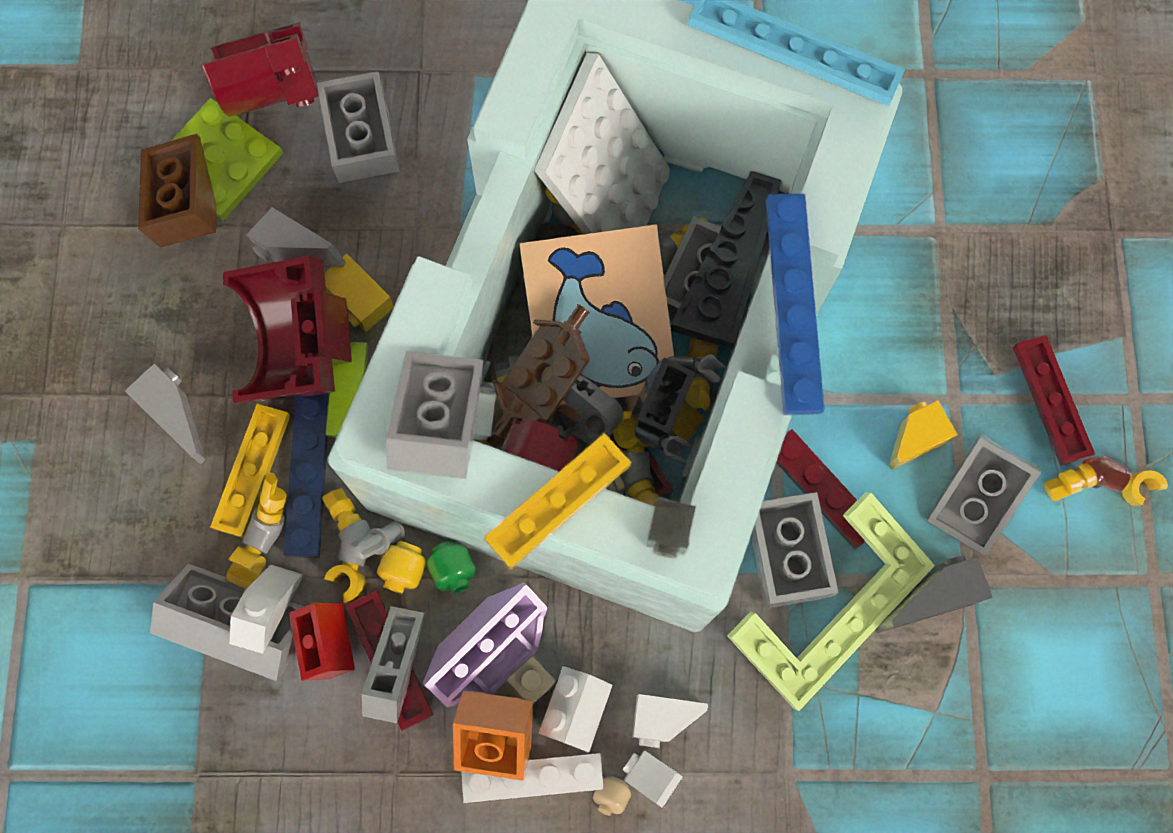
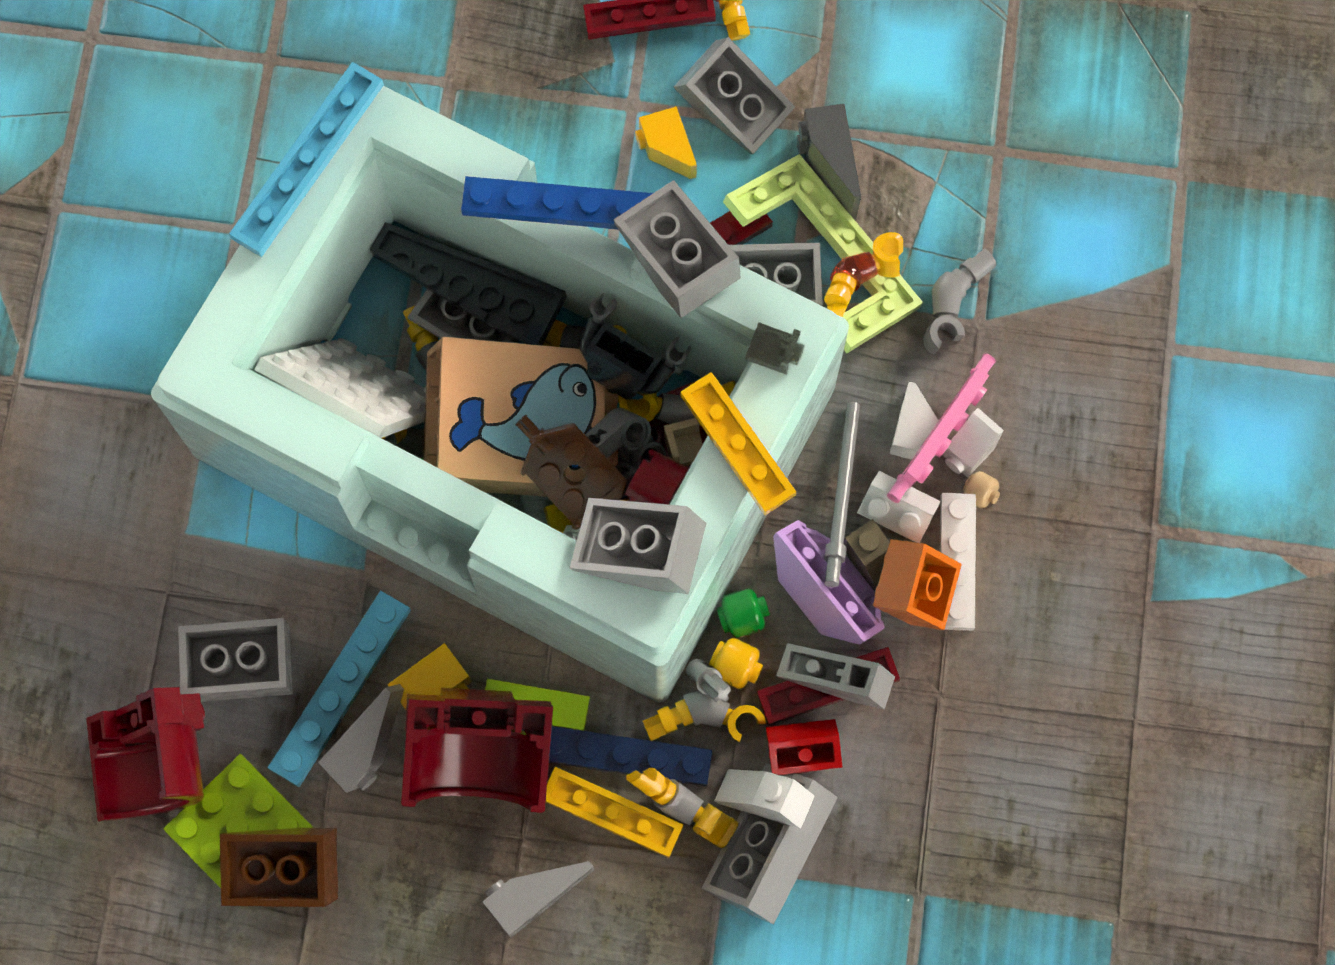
camera: 80 degrees left, 0 degrees up
(346, 219) = (339, 689): none -> medium azure plate
(516, 647) = (836, 550): none -> light grey bar
(671, 752) = (937, 440): none -> bright pink plate
(760, 408) = (678, 248): none -> light grey slope
(816, 738) = (947, 297): none -> light grey piece
(817, 635) = (859, 268): none -> yellow piece

